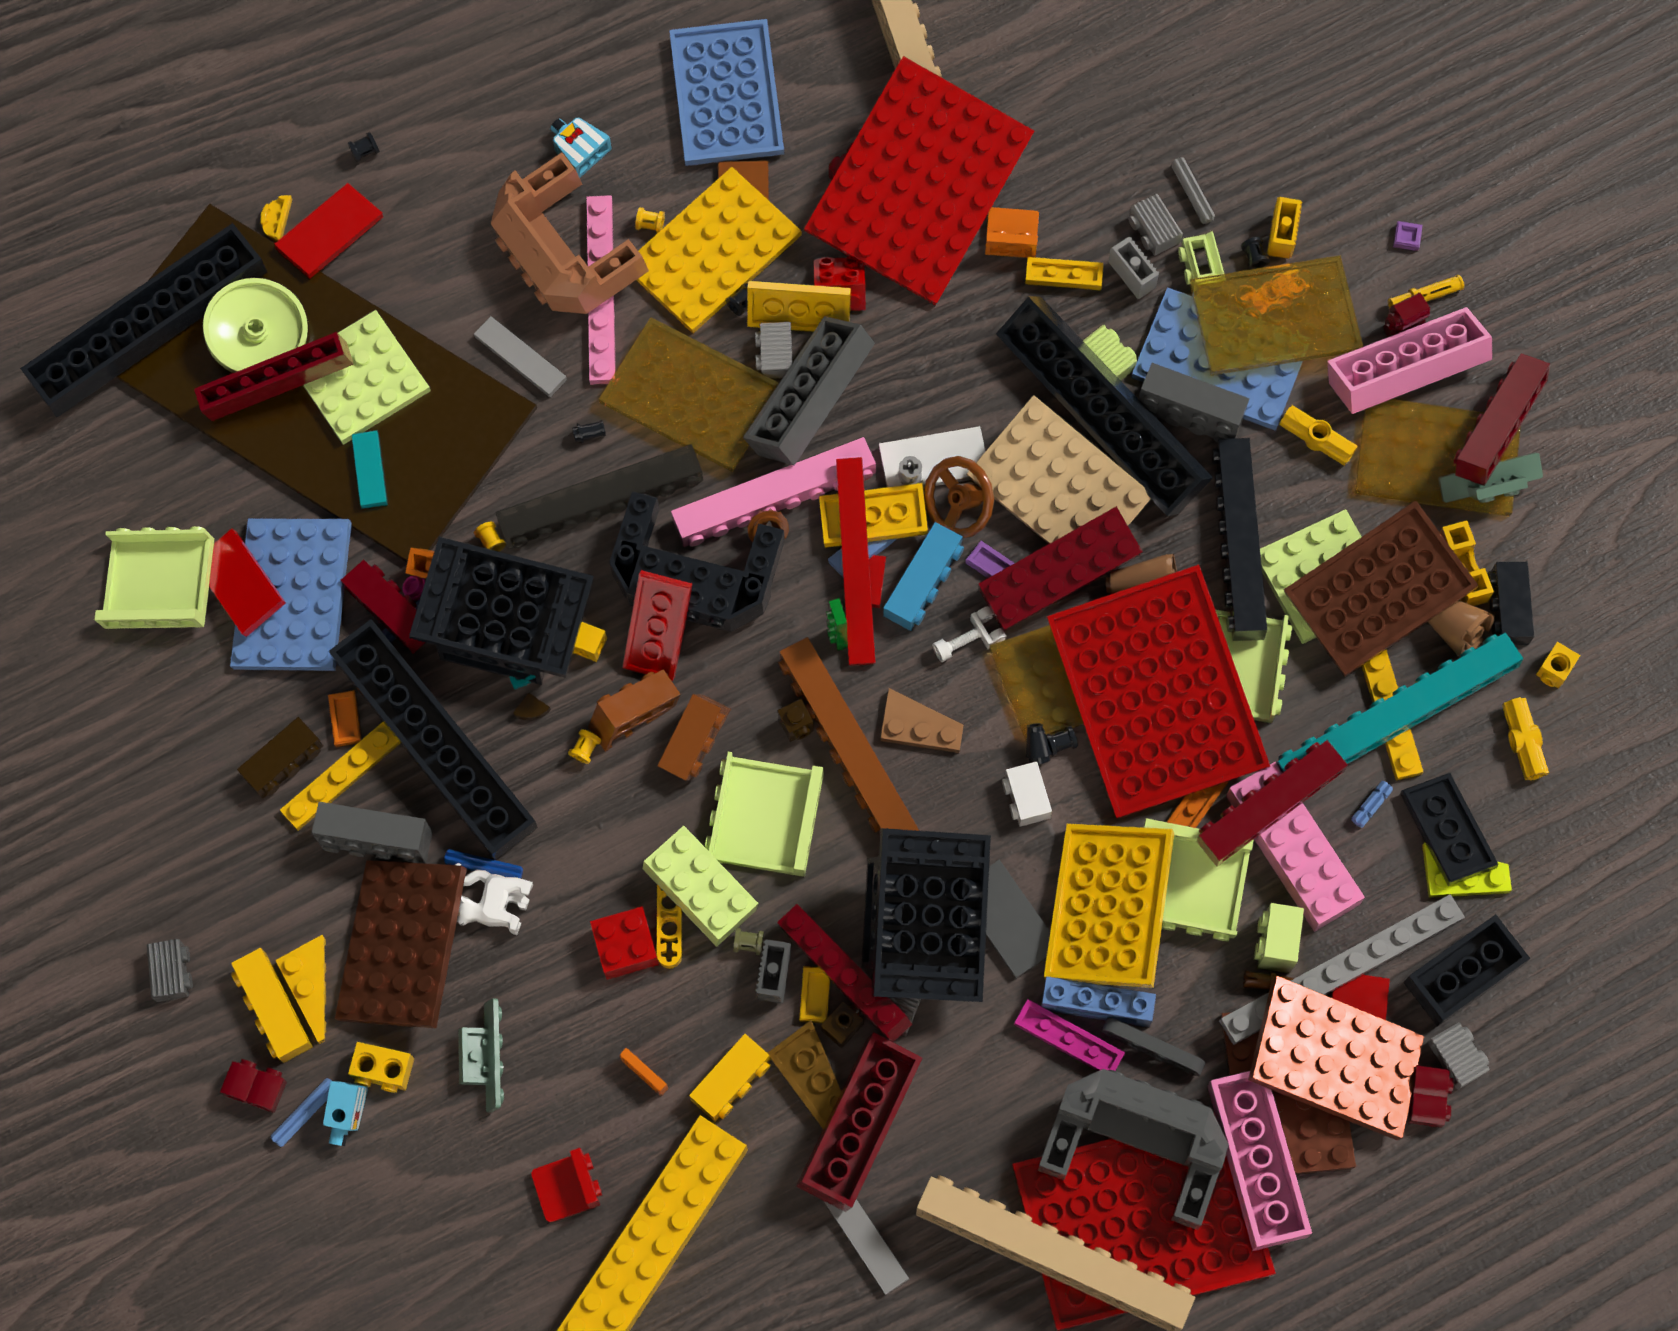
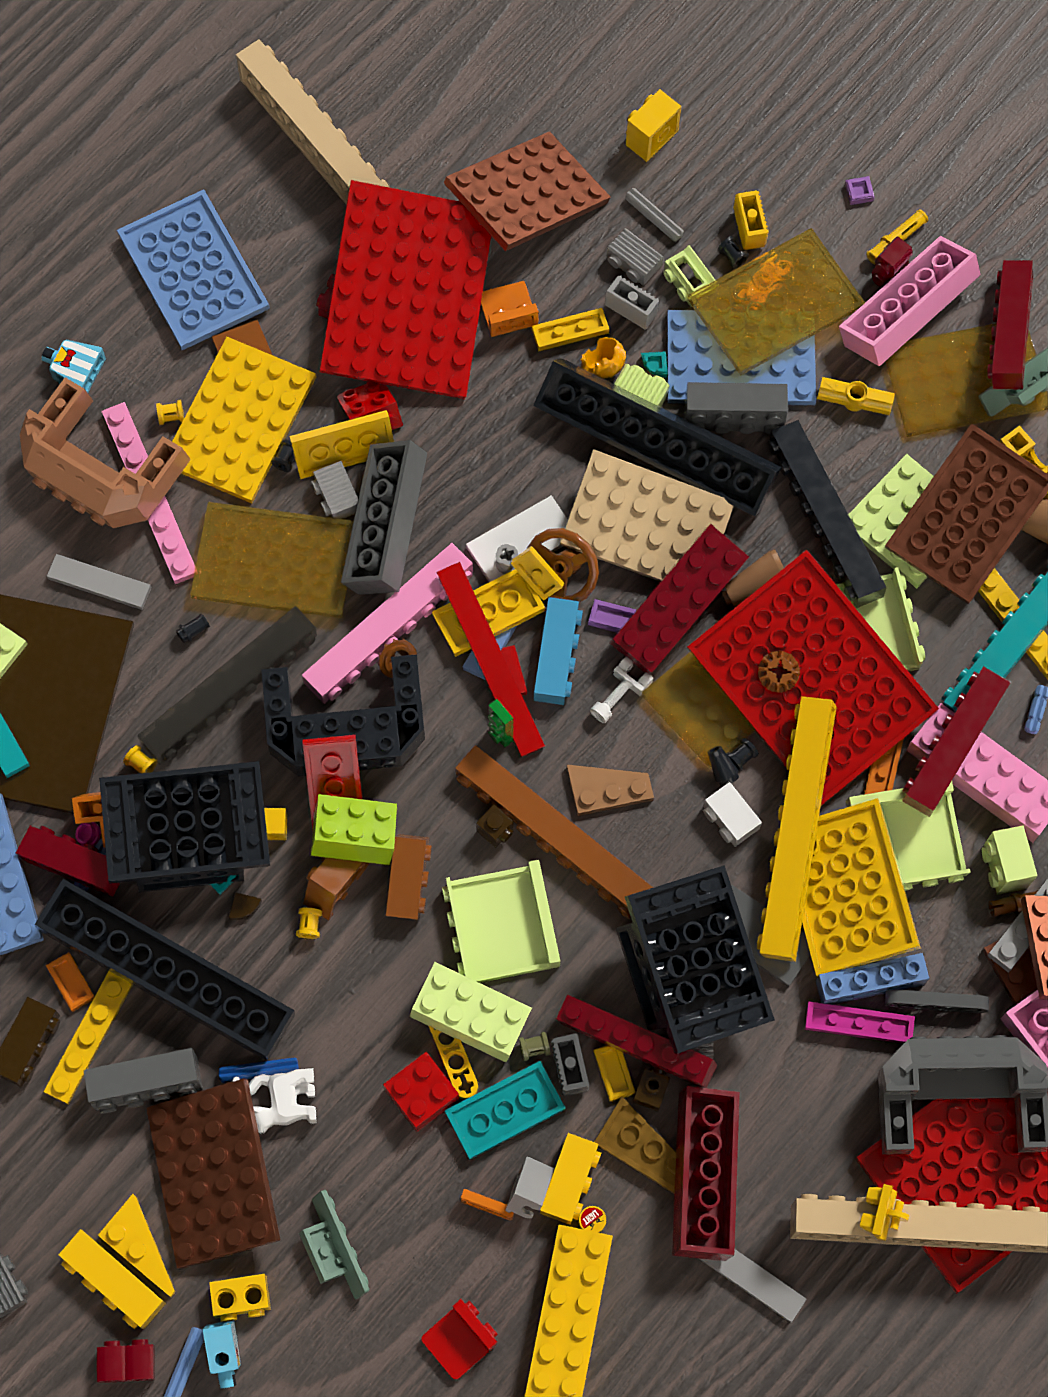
camera: 25 degrees left, 0 degrees up
(658, 673) = (354, 829): none -> lime brick
(687, 1070) = (529, 1187): none -> light grey hinge
(696, 990) = (504, 1110): none -> teal plate
(737, 1124) = (592, 1219): none -> tile
(932, 494) = (537, 573): none -> yellow plate
(1009, 1224) = (885, 1200): none -> yellow hips
(1074, 124) = (527, 190): none -> copper plate
(1082, 829) = (797, 830): none -> yellow brick
(1085, 314) = (605, 359): none -> light orange hair
(1130, 684) = (769, 679): none -> dark orange gear
(1135, 334) = (655, 363): none -> teal tile
(1225, 102) = (652, 125): none -> yellow brick

